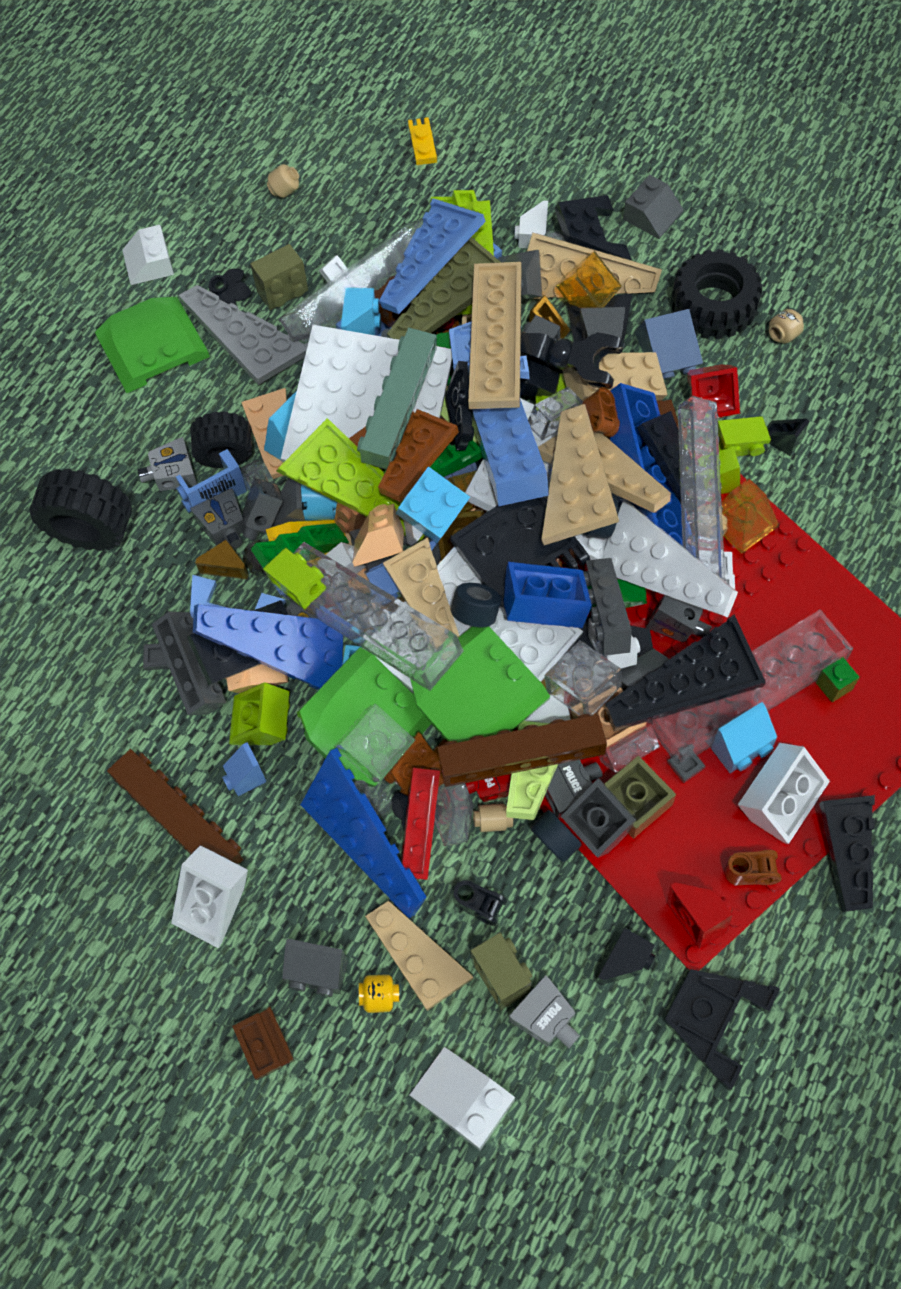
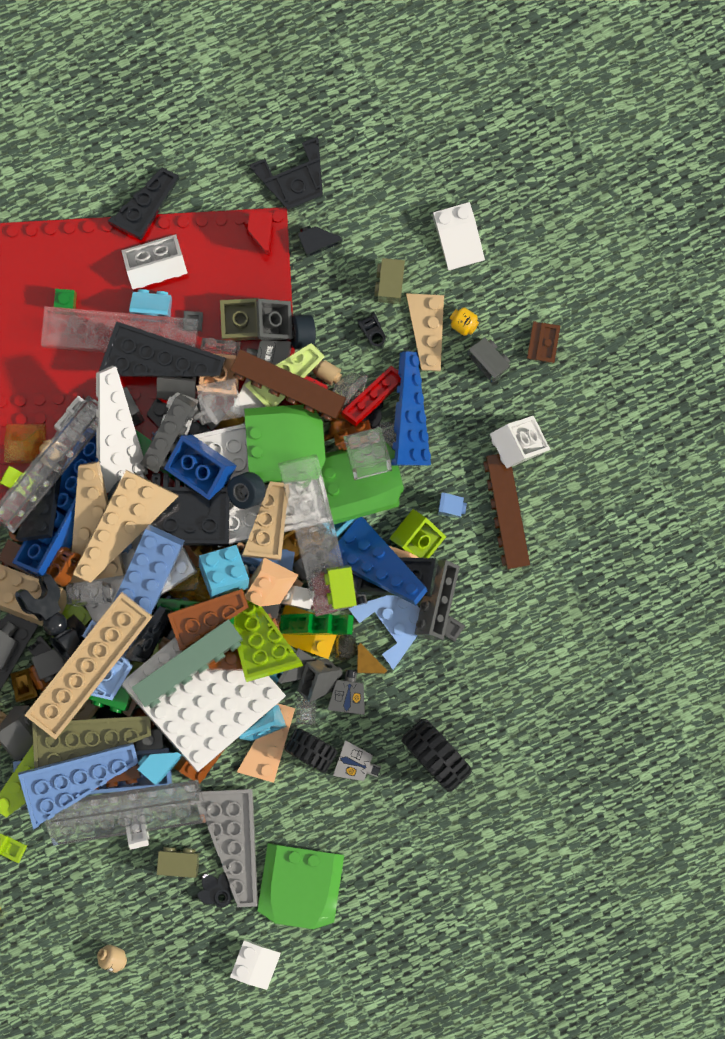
camera: 150 degrees left, 20 degrees up
(218, 483) = (320, 717): medium blue panel -> none
(546, 1015) = (383, 243): light grey torso -> none
(759, 868) = (207, 233): dark orange piece -> none

